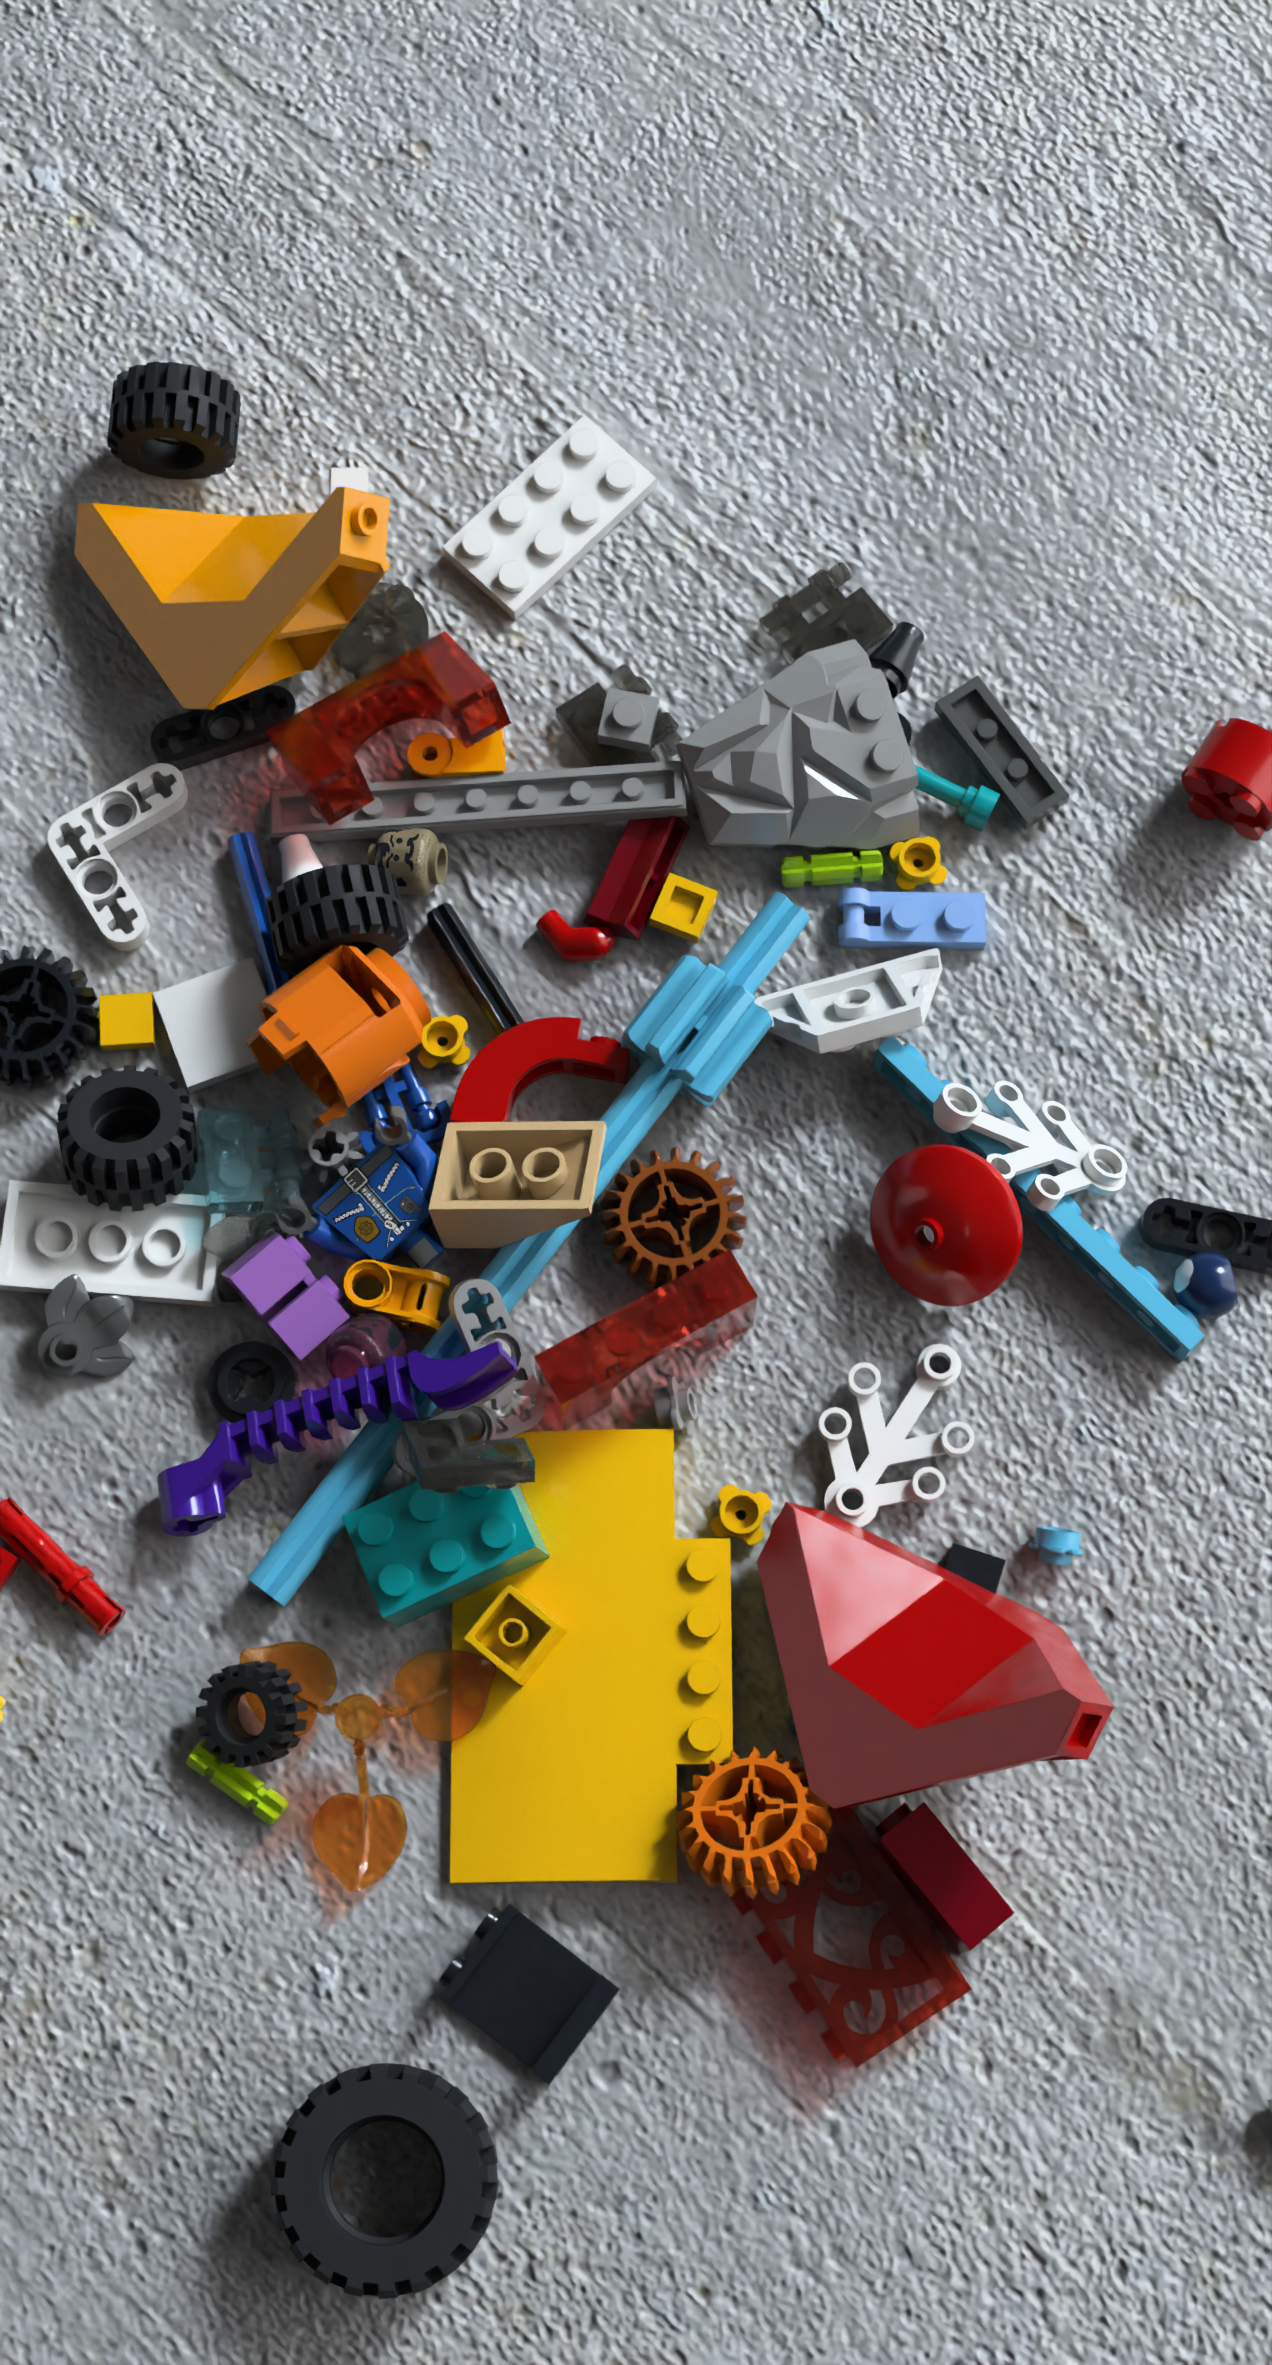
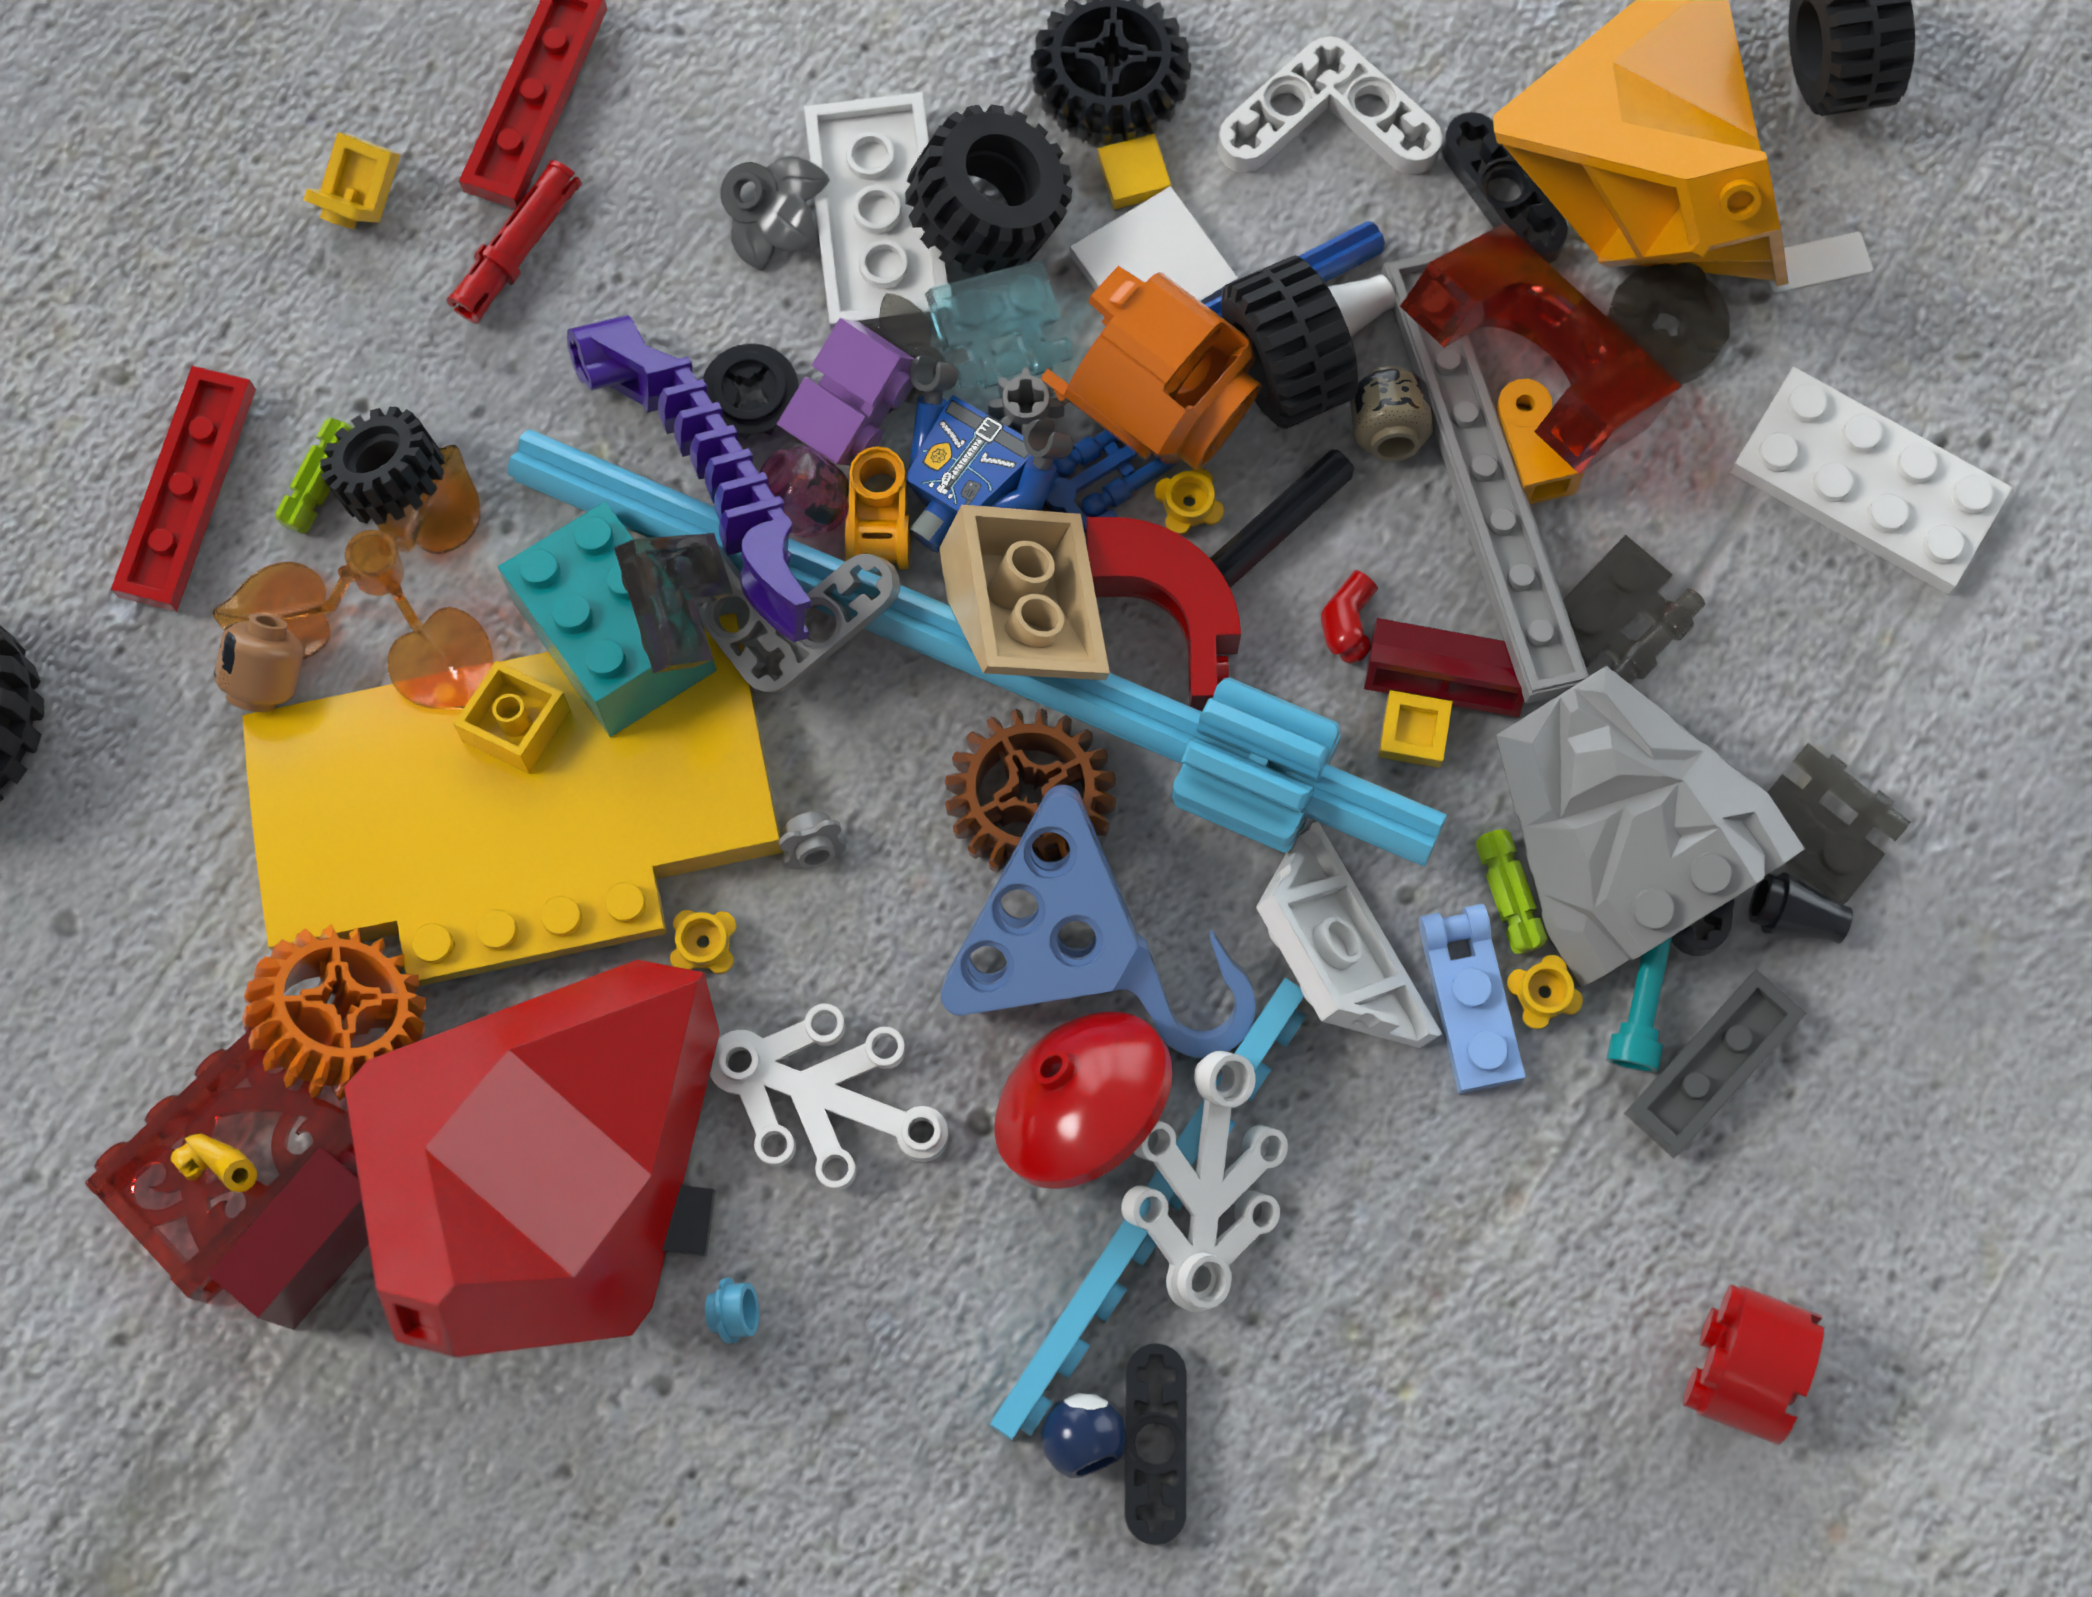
camera: 80 degrees right, 0 degrees up
(222, 1904) = (183, 489): none -> red plate
(412, 1853) = (259, 663): none -> medium nougat head
(527, 1991) = (136, 820): black panel -> none
(628, 720) = (1628, 612): light grey plate -> none
(703, 1304) = (828, 731): clear red arch -> none
(817, 1240) = (1047, 969): none -> medium blue piece
(861, 1940) = (224, 1160): none -> yellow arm

